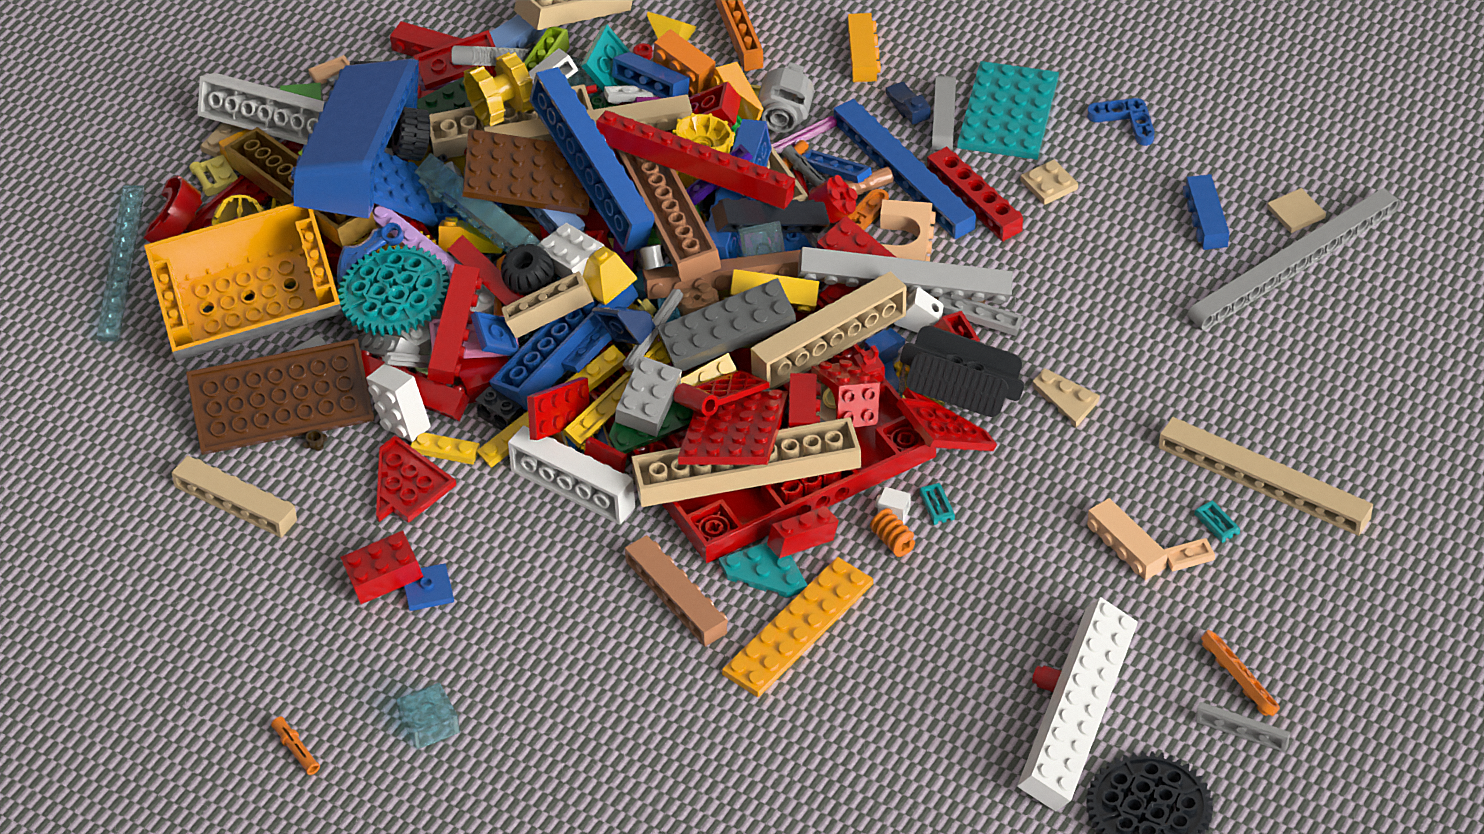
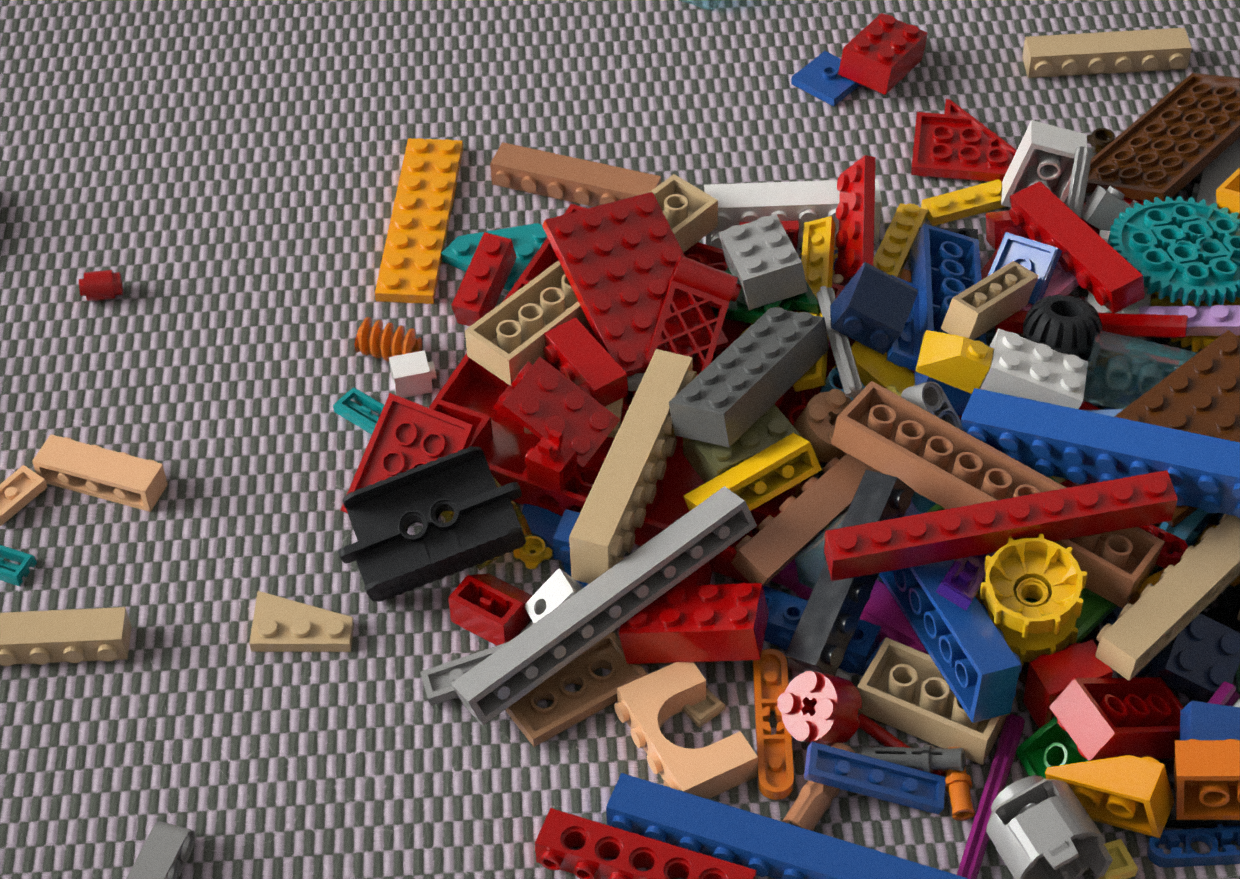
camera: 145 degrees right, 0 degrees up
(1077, 704) = (48, 264): white brick -> none

